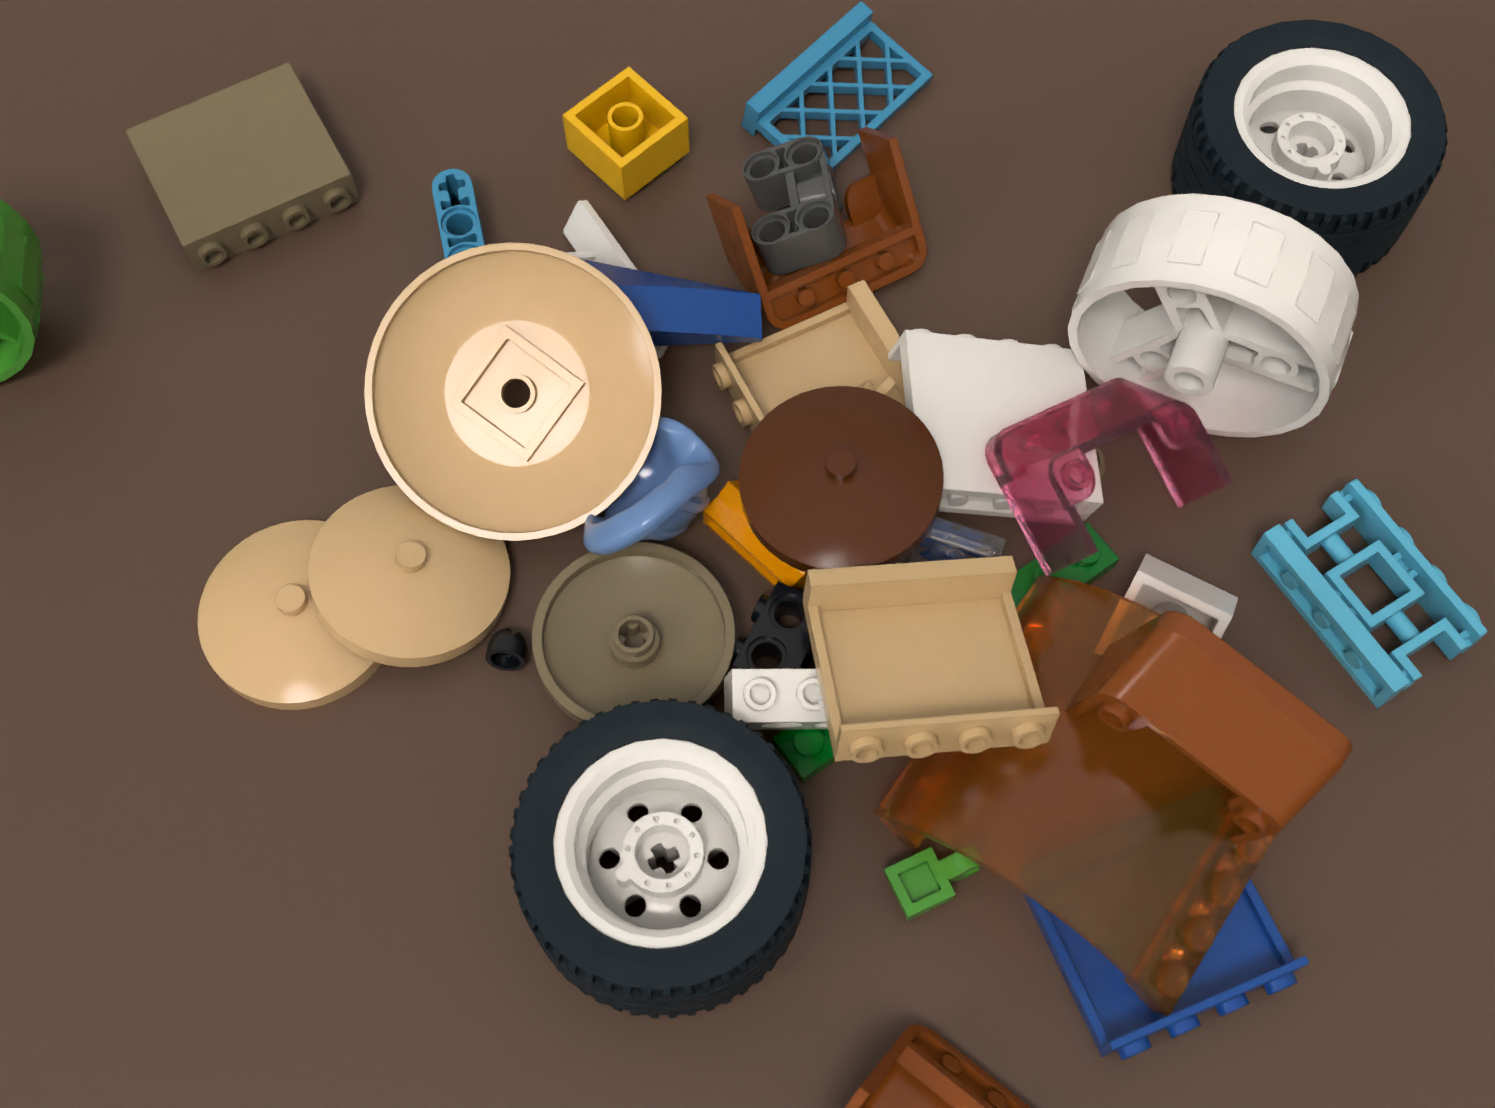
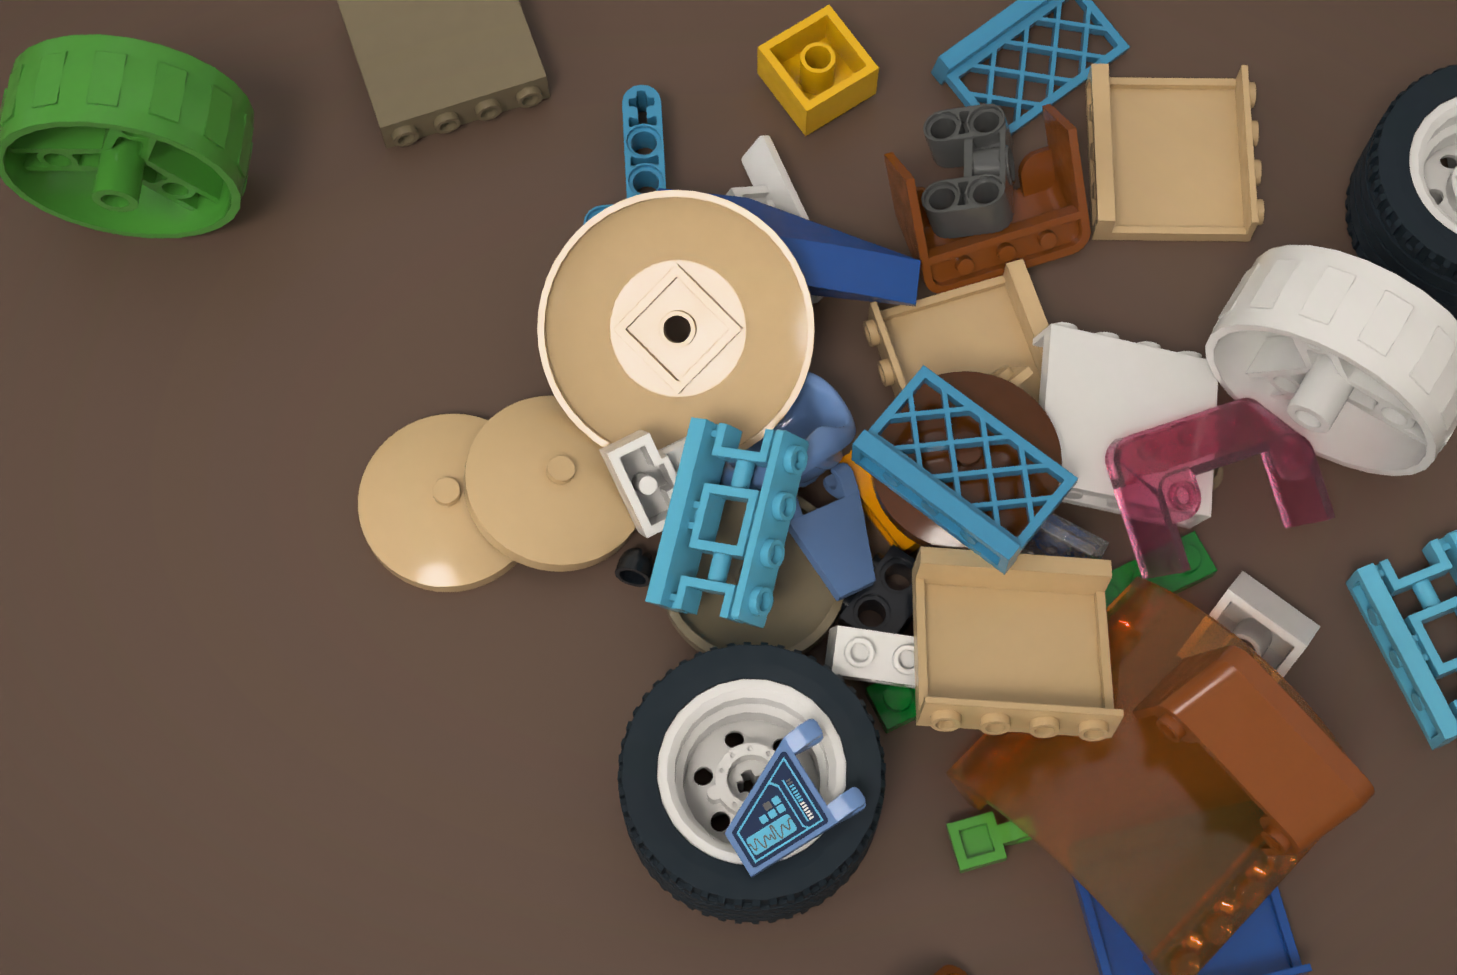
camera: 10 degrees right, 5 degrees up
(510, 549) = (644, 477): none -> white brick
(562, 574) = (697, 512): none -> medium azure fence
(704, 873) = (786, 806): none -> flag
(711, 581) = (837, 536): none -> medium blue flag
(826, 521) = (937, 500): none -> dark azure fence
(995, 170) = (1172, 158): none -> tan panel

